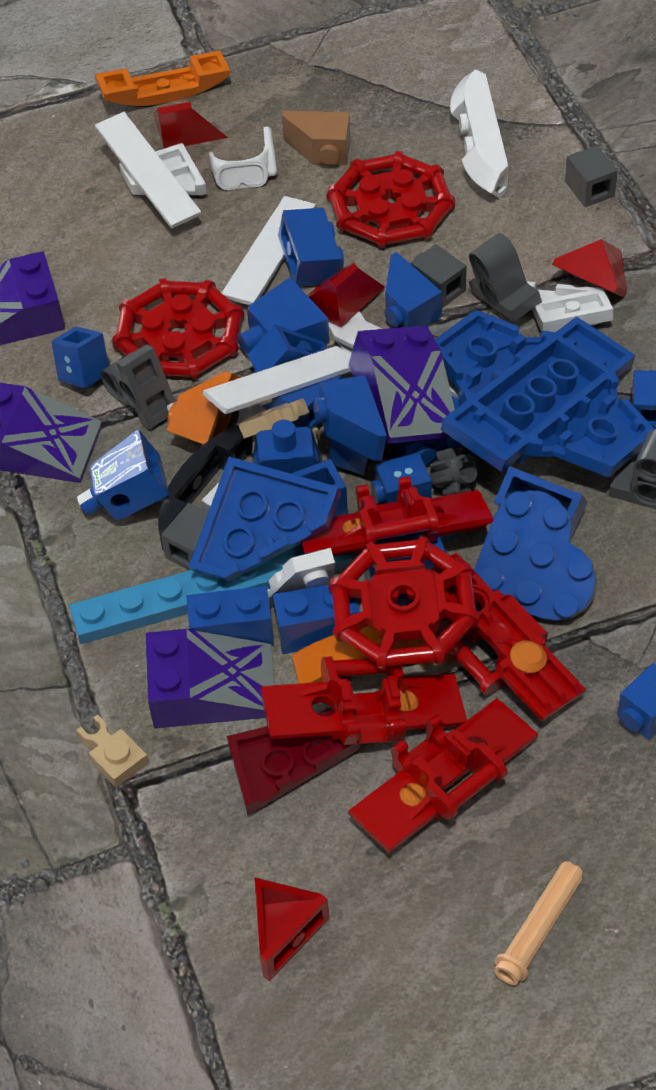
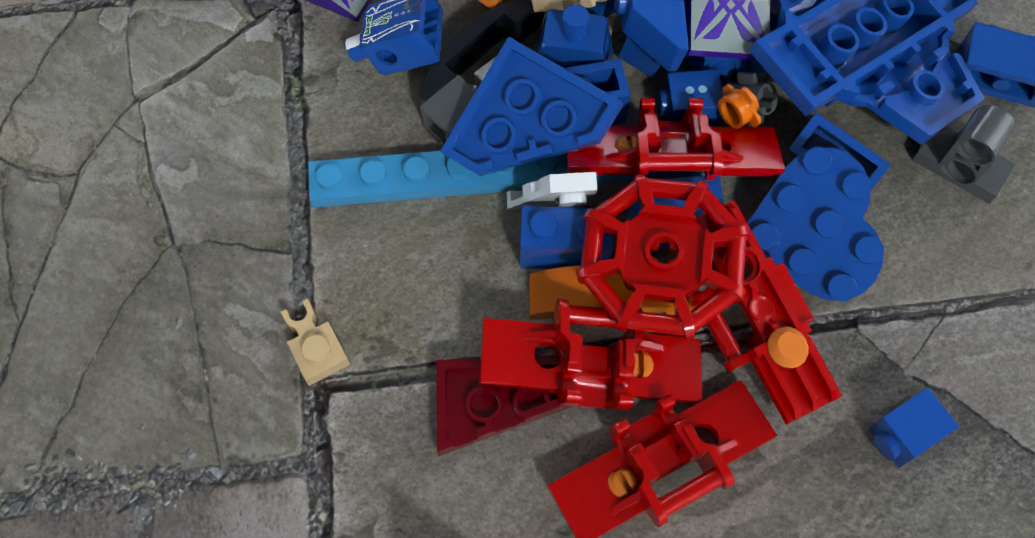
camera: 10 degrees right, 15 degrees up
(205, 677) = (431, 282): dark purple slope -> none
(232, 613) = (471, 221): blue brick -> none
(443, 477) = (739, 107): none -> orange plate

